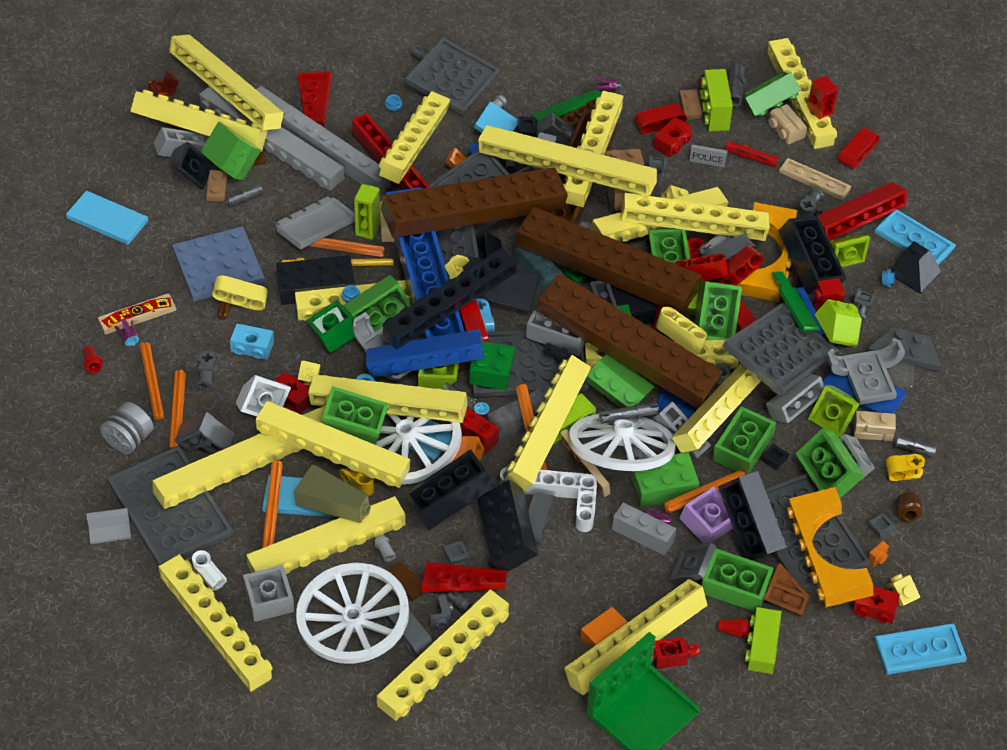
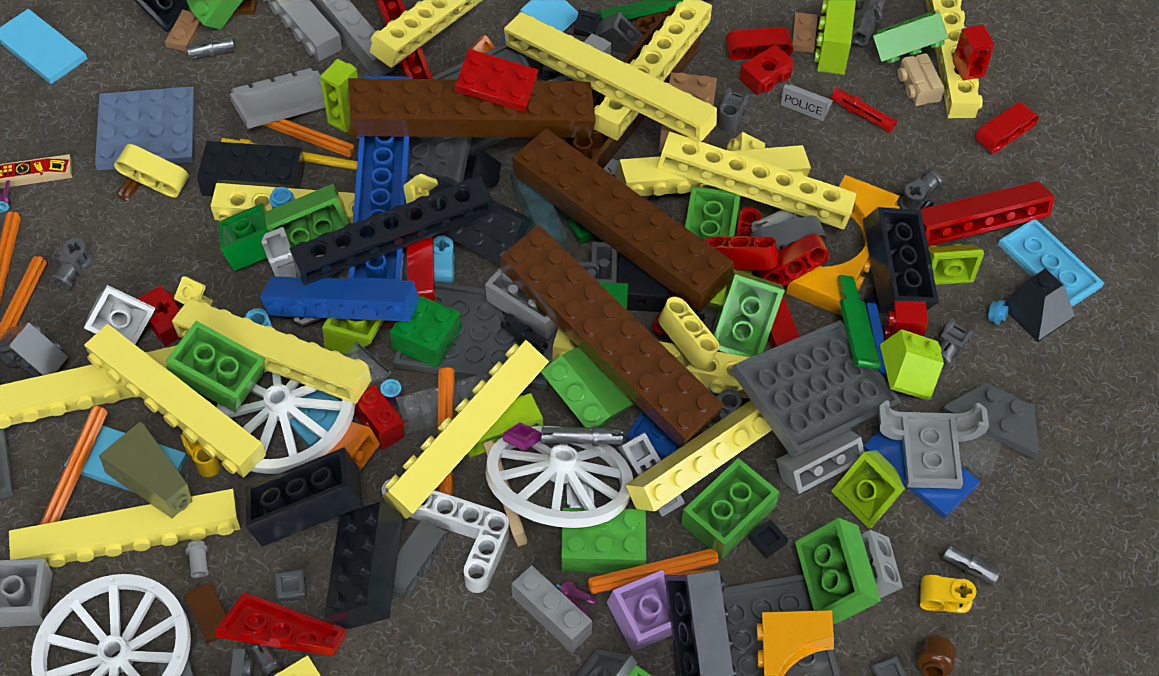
camera: 15 degrees right, 5 degrees up
(252, 341) = (142, 236): medium azure brick -> none
(490, 177) = (496, 80): none -> red plate
(587, 421) = (522, 436): none -> magenta tile
(815, 179) = (938, 158): tan tile -> none
(874, 426) = (919, 523): tan brick -> none

